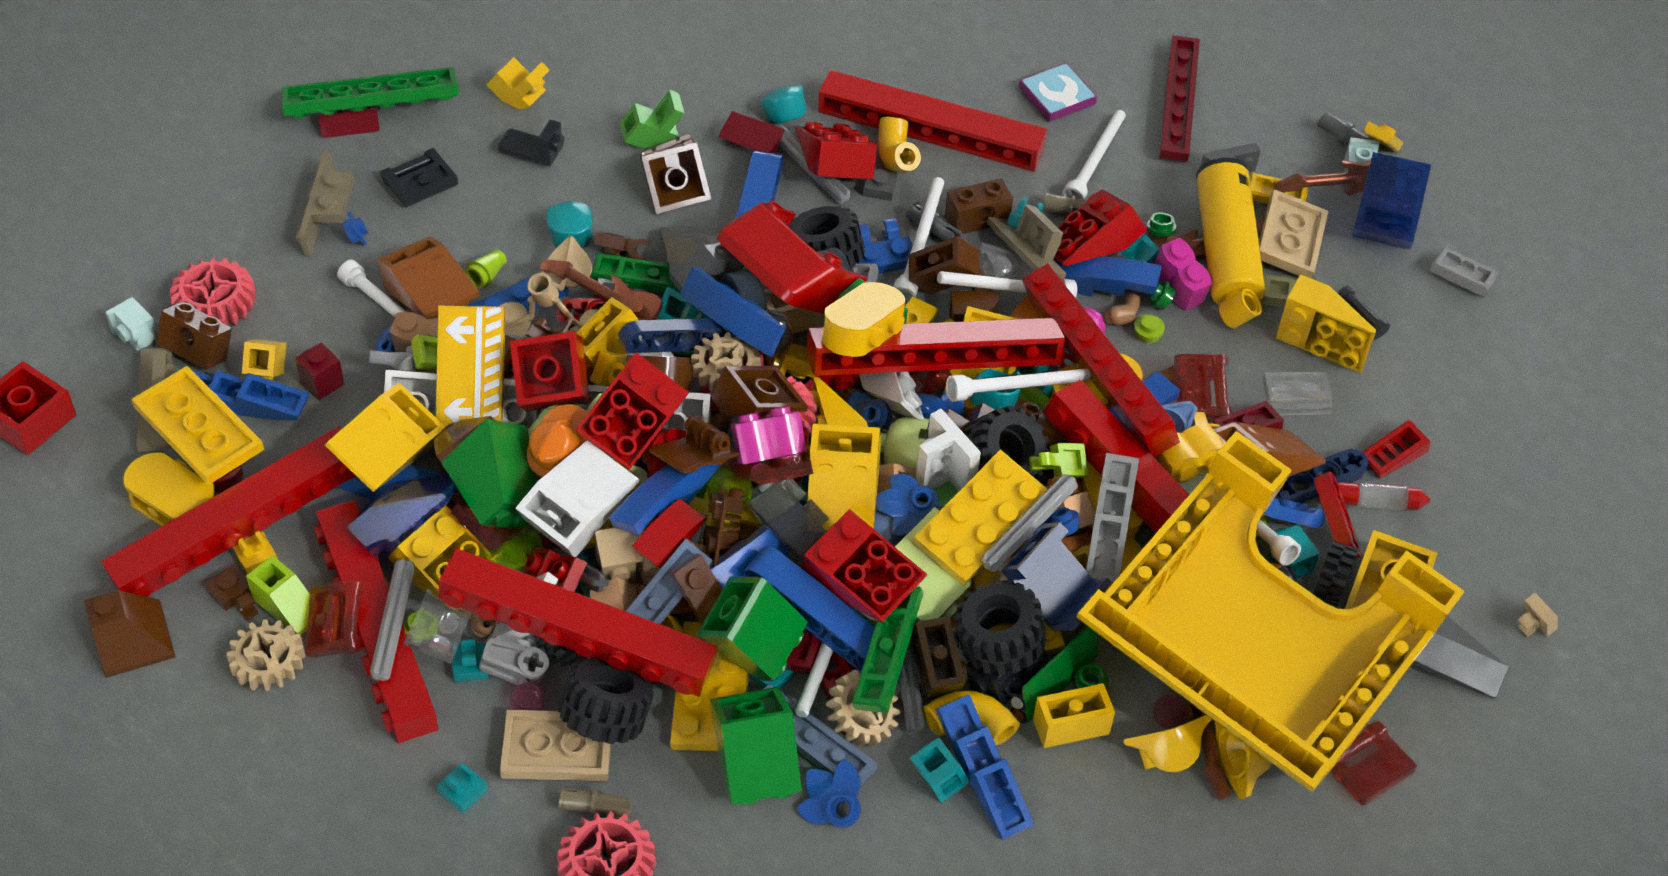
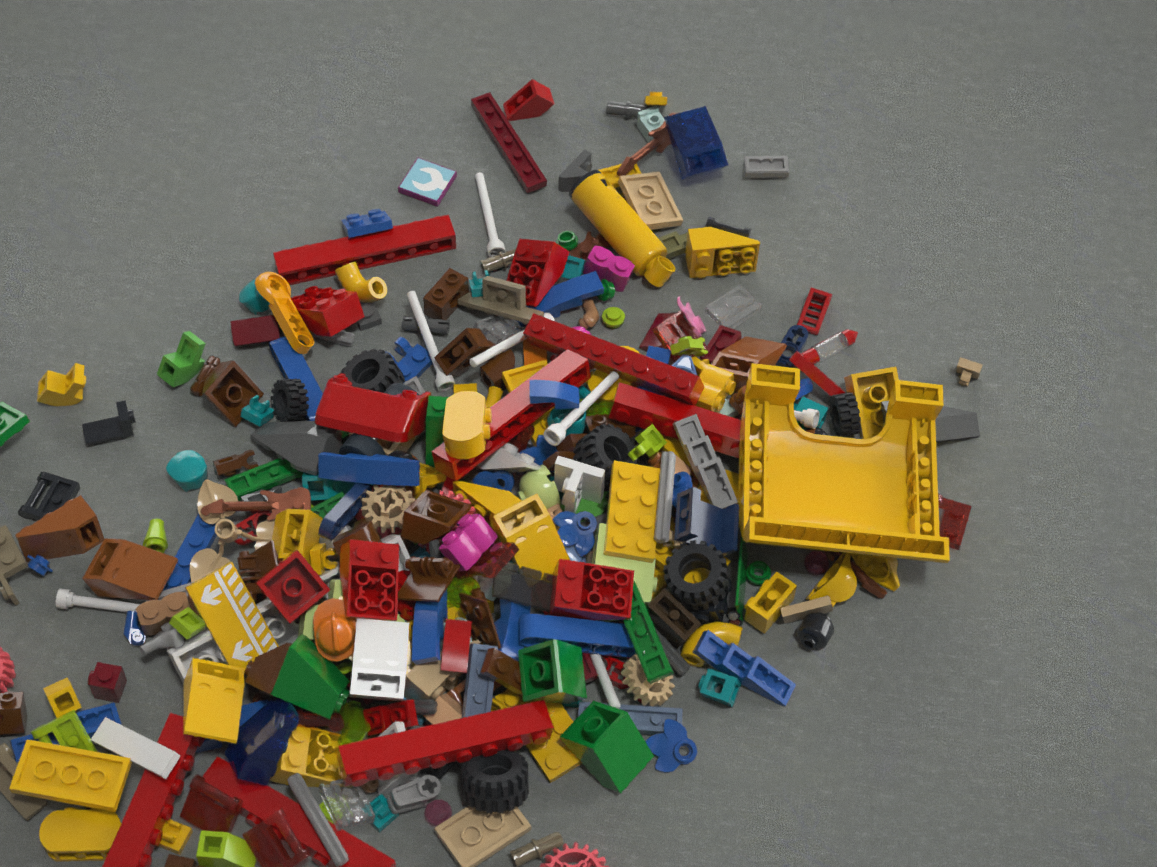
camera: 35 degrees left, 5 degrees up
(235, 390) = (67, 731): none -> lime plate
(280, 439) = (132, 745): none -> white tile
(307, 545) = (205, 812): none -> clear red plate
(396, 207) = (62, 533): none -> dark orange slope
(687, 209) = (257, 412): none -> teal tile
(724, 208) = (289, 400): none -> black tyre
(792, 124) = (278, 293): none -> light orange beam
(943, 90) = (372, 222): none -> blue plate
(999, 351) = (547, 391): none -> blue slope
(1104, 781) = (815, 631): none -> black head
(1110, 749) = (800, 610): none -> tan tile
(1202, 396) = (689, 346): none -> lime plate
(1236, 374) = (694, 322): none -> bright pink plate
(1237, 69) = (529, 102): none -> red slope

